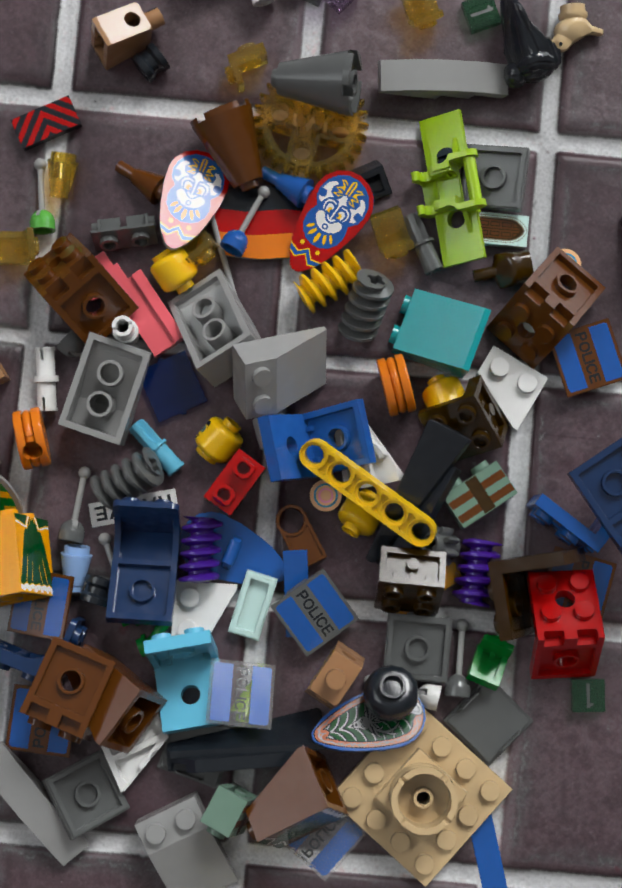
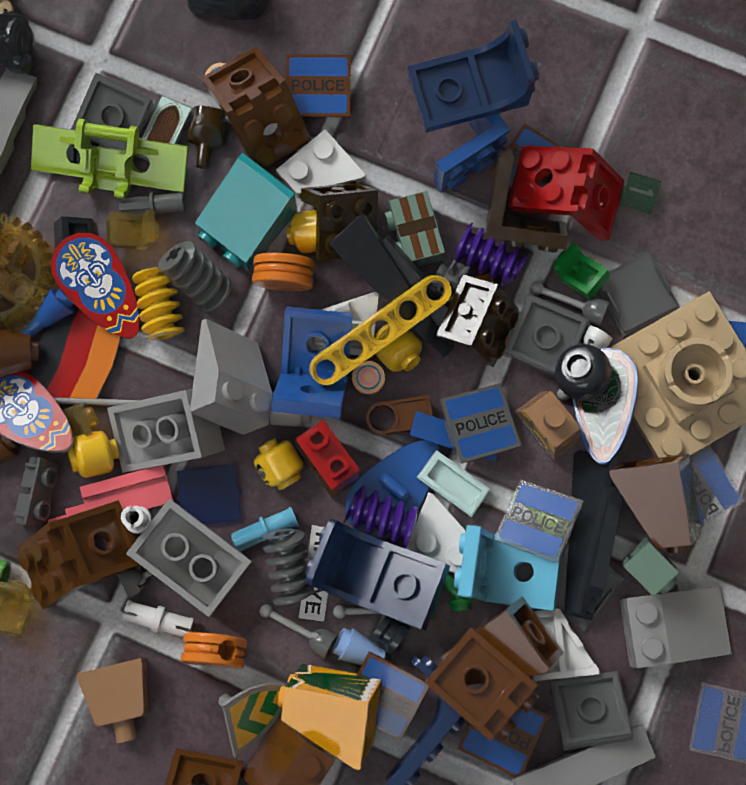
camera: 70 degrees left, 5 degrees down
(236, 241) = (85, 382): hinge -> none

